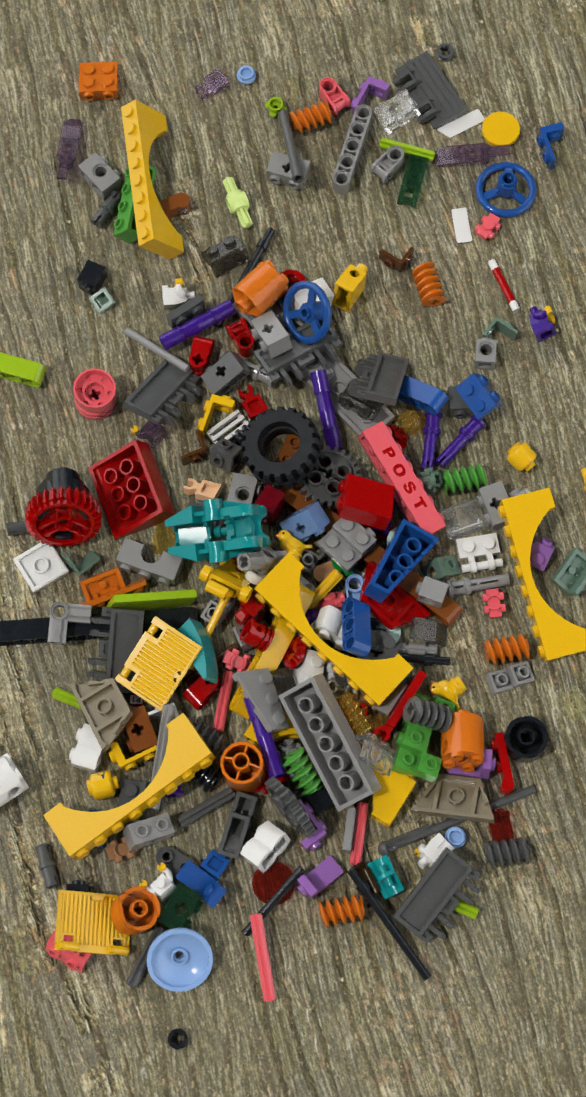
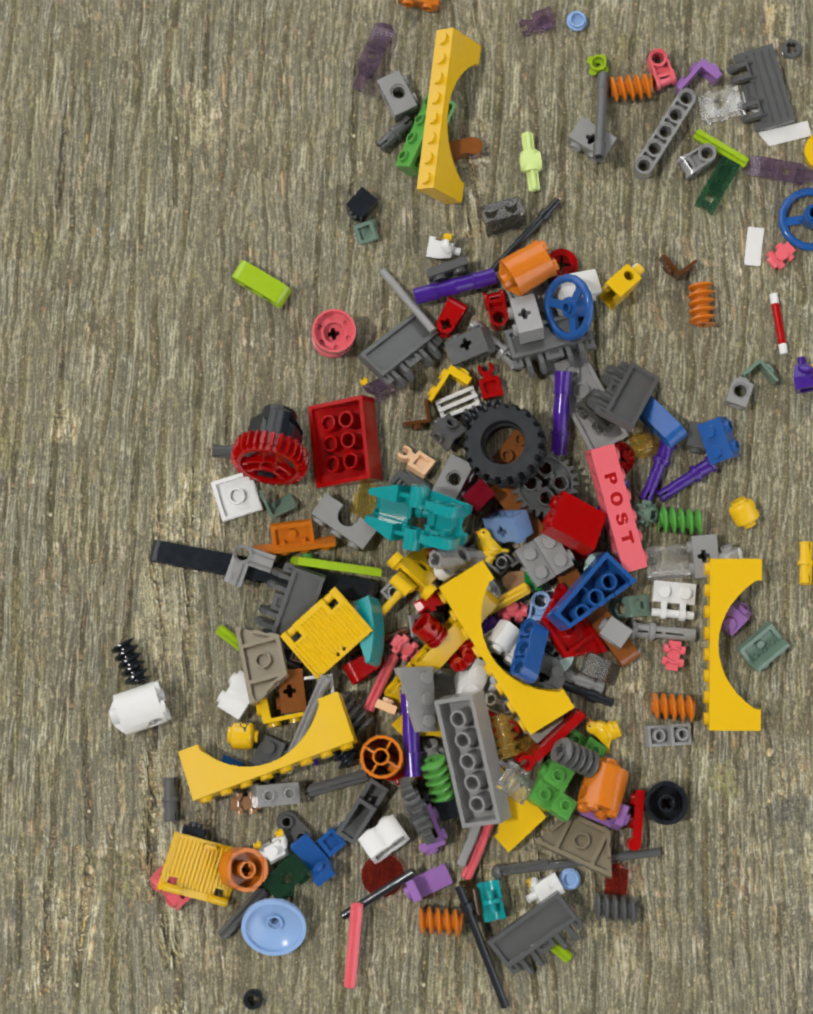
camera: 15 degrees right, 10 degrees up
(234, 718) = (386, 705): none -> light nougat plate

